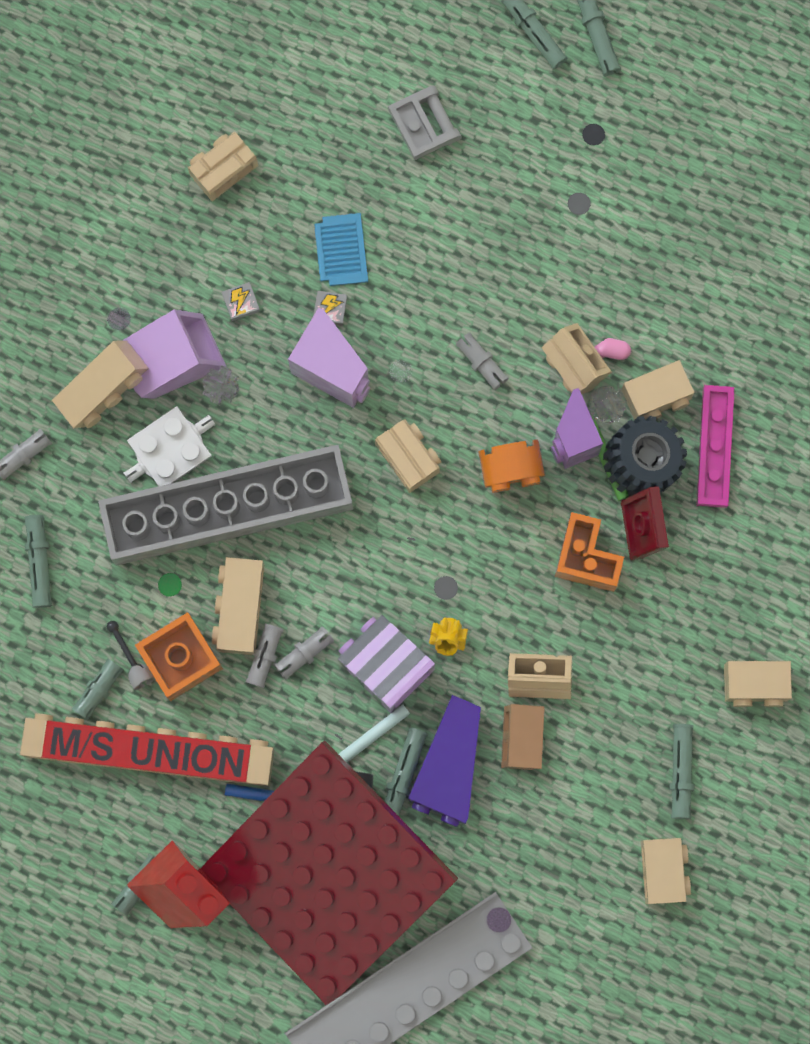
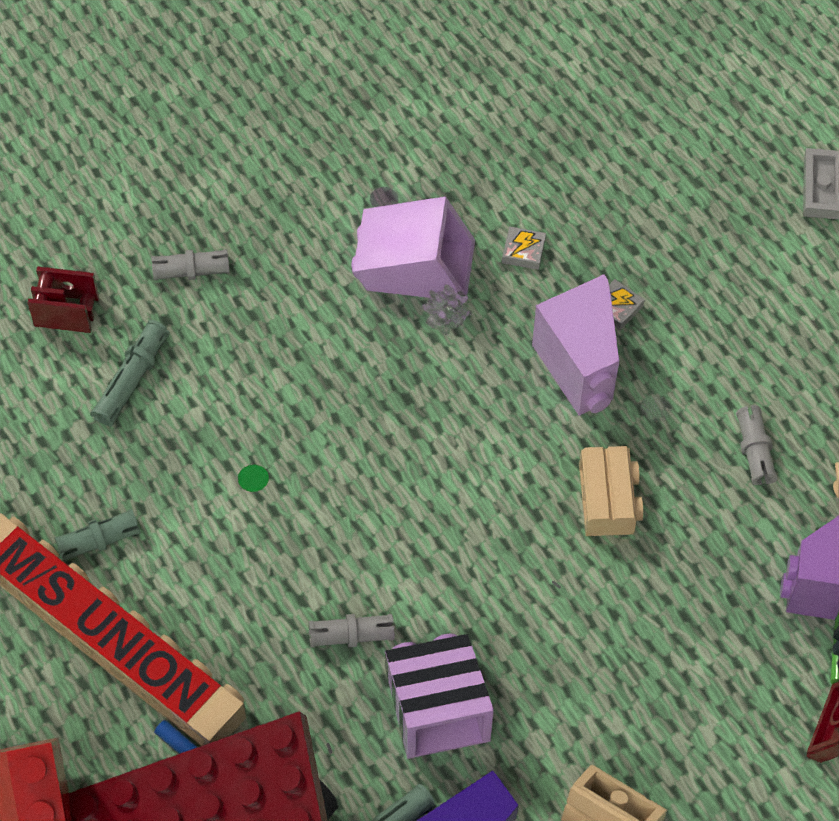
camera: 30 degrees right, 20 degrees down
(100, 385) = (318, 234): tan brick -> none
(138, 672) = (153, 542): hinge -> none
(169, 448) = (348, 343): white plate -> none
(178, 656) = (208, 548): orange brick -> none
(222, 165) = (590, 114): tan brick -> none
(225, 505) = (371, 425): light grey brick -> none
(238, 606) = (312, 538): tan brick -> none
(264, 655) = (305, 607): light grey pin -> none
(341, 250) = (667, 258): dark azure window -> none
(374, 733) = (373, 768): light aqua bar -> none
(446, 587) = (562, 659): dark grey piece -> none
(448, 636) = (530, 707): yellow gear -> none
(512, 464) = (724, 562): orange brick -> none
(582, 562) = (746, 715): orange brick -> none

